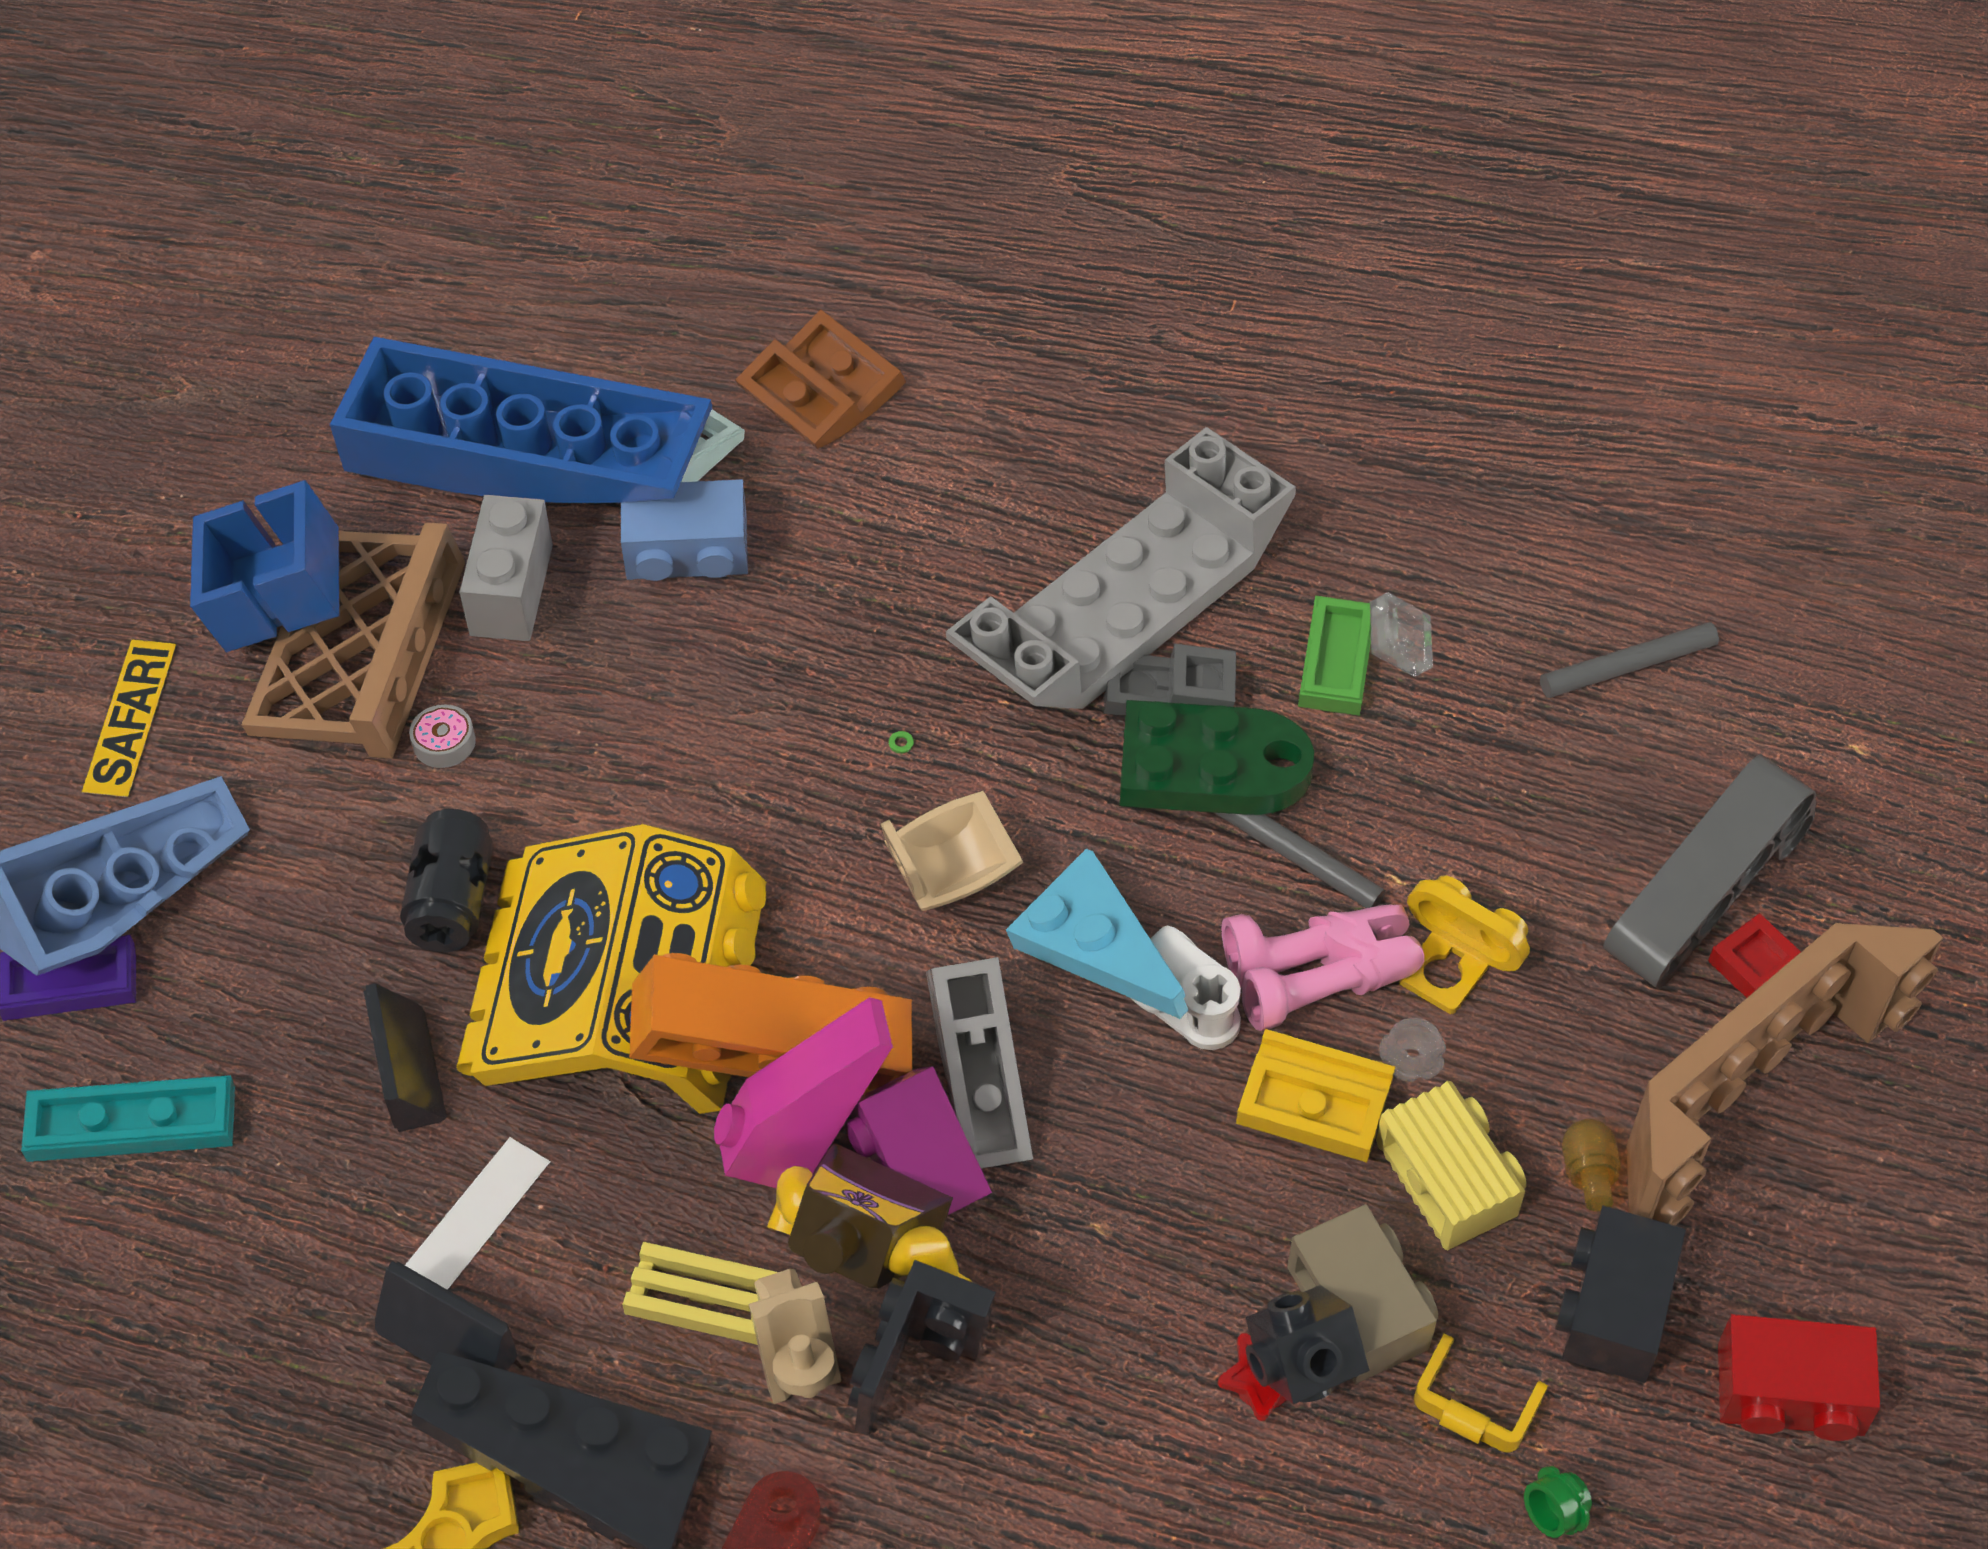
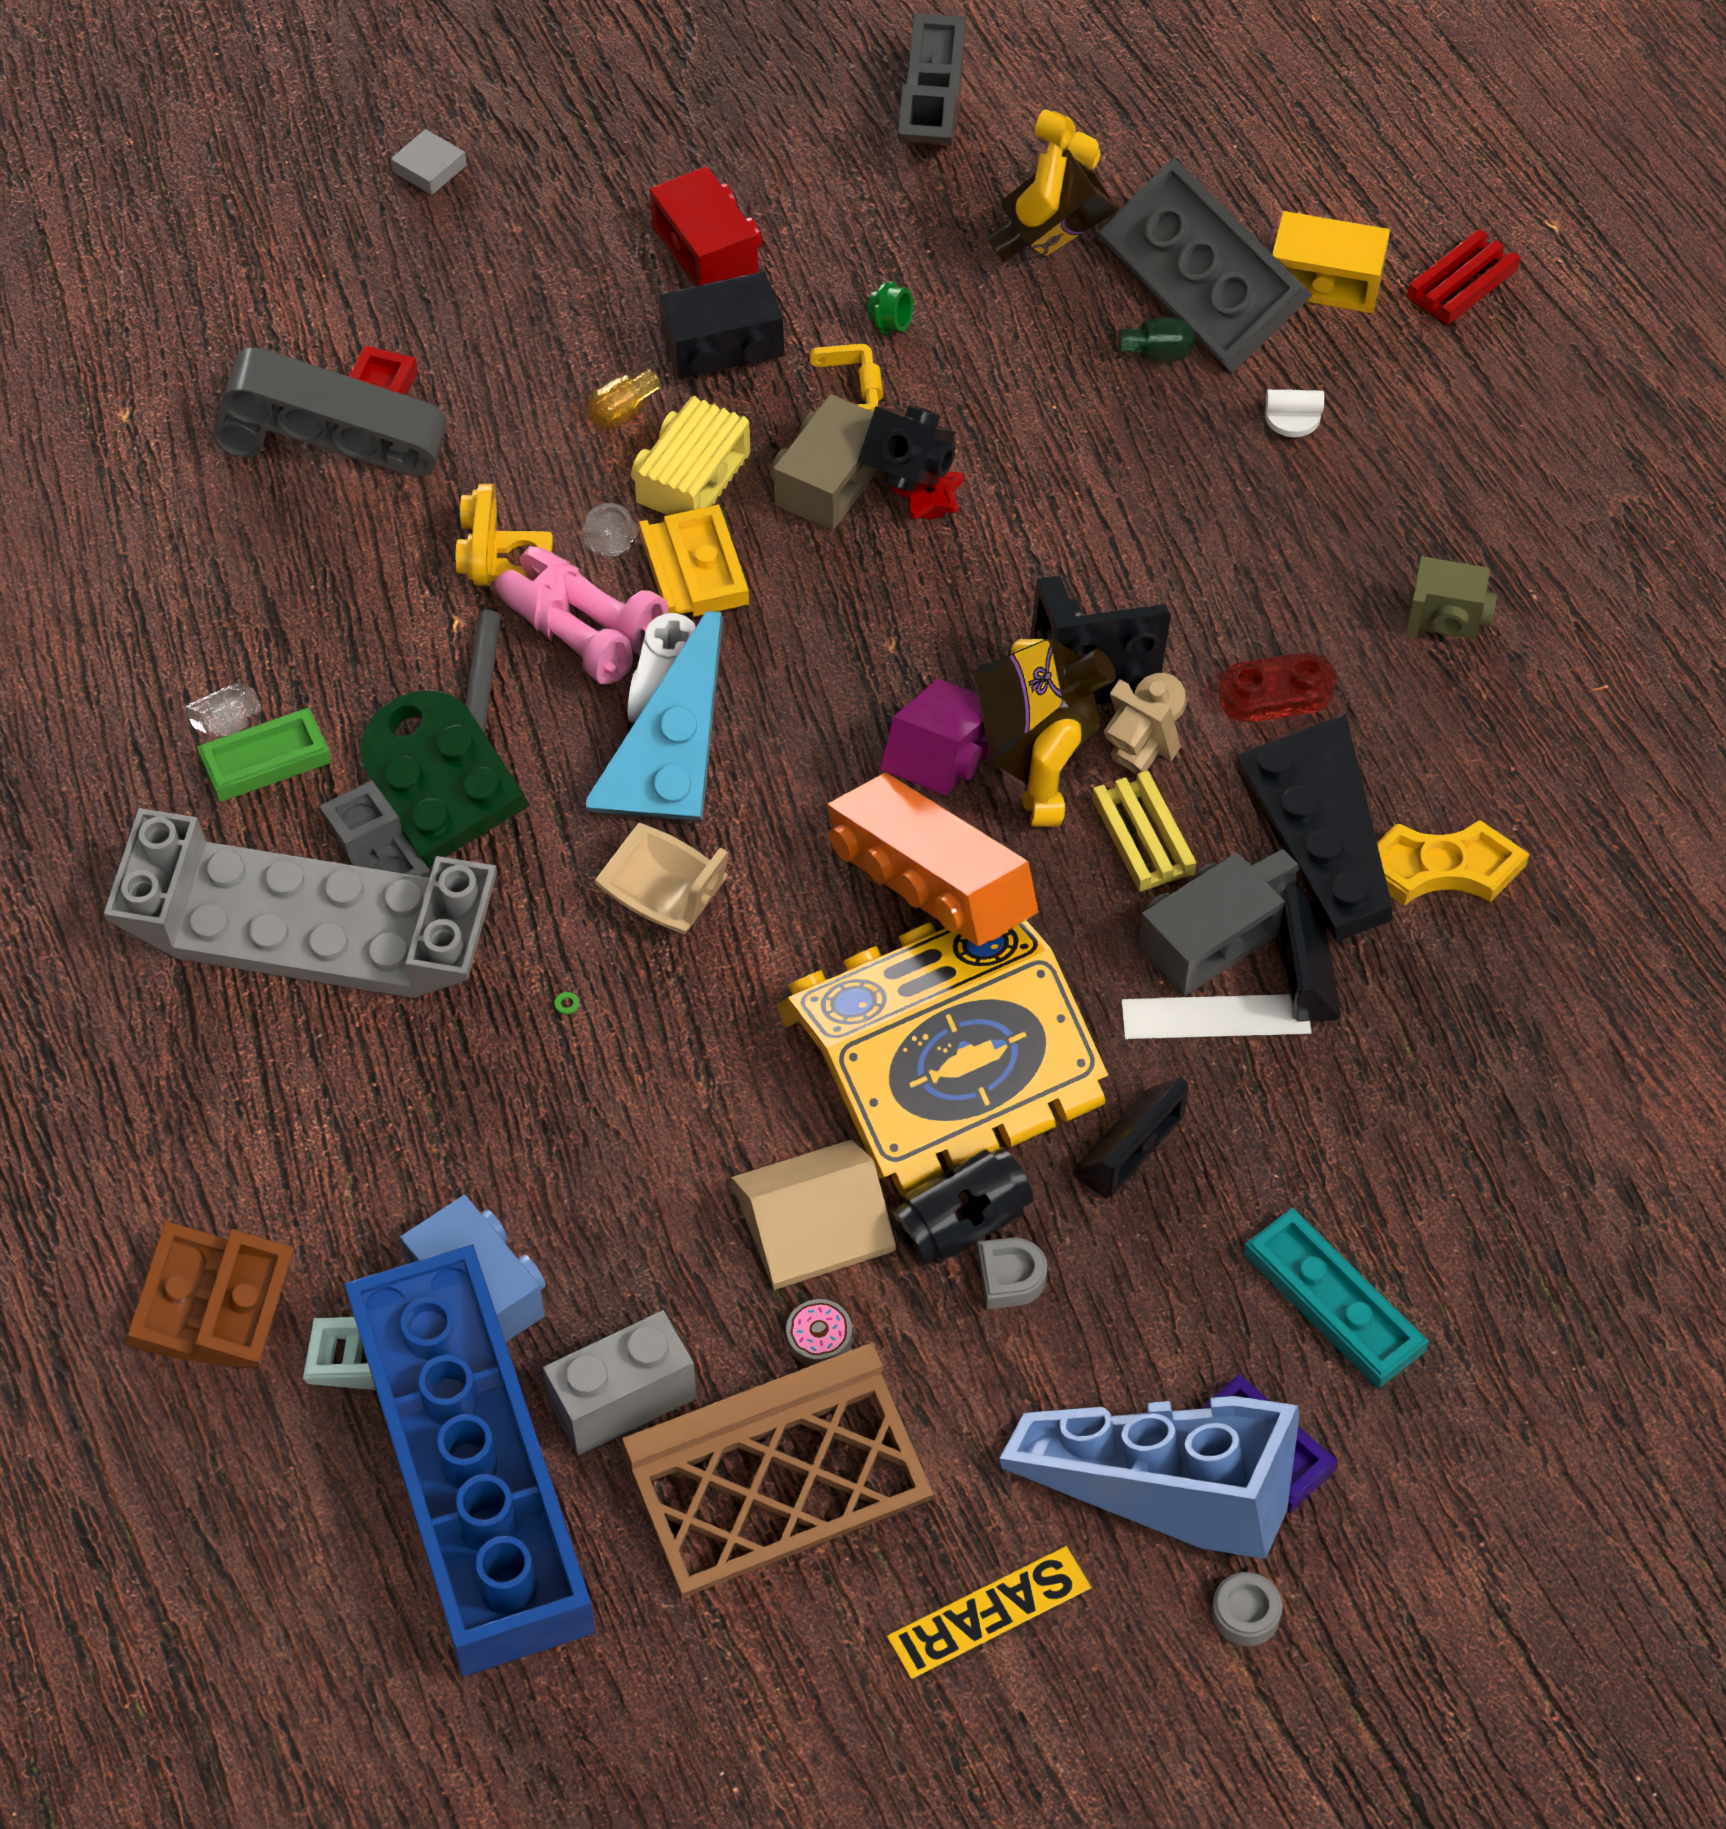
camera: 125 degrees left, 0 degrees up
(252, 586) = (778, 1553): blue piece -> none
(370, 897) = (1011, 1271): none -> light grey tile
(545, 1270) = (1216, 918): none -> dark grey hinge
(553, 782) = (815, 1213): none -> tan slope
(802, 1098) = (967, 784): dark pink slope -> none
(980, 1060) = (814, 766): light grey slope -> none
(1629, 659) = (137, 572): dark grey bar -> none
(1849, 971) = (492, 331): medium nougat slope -> none

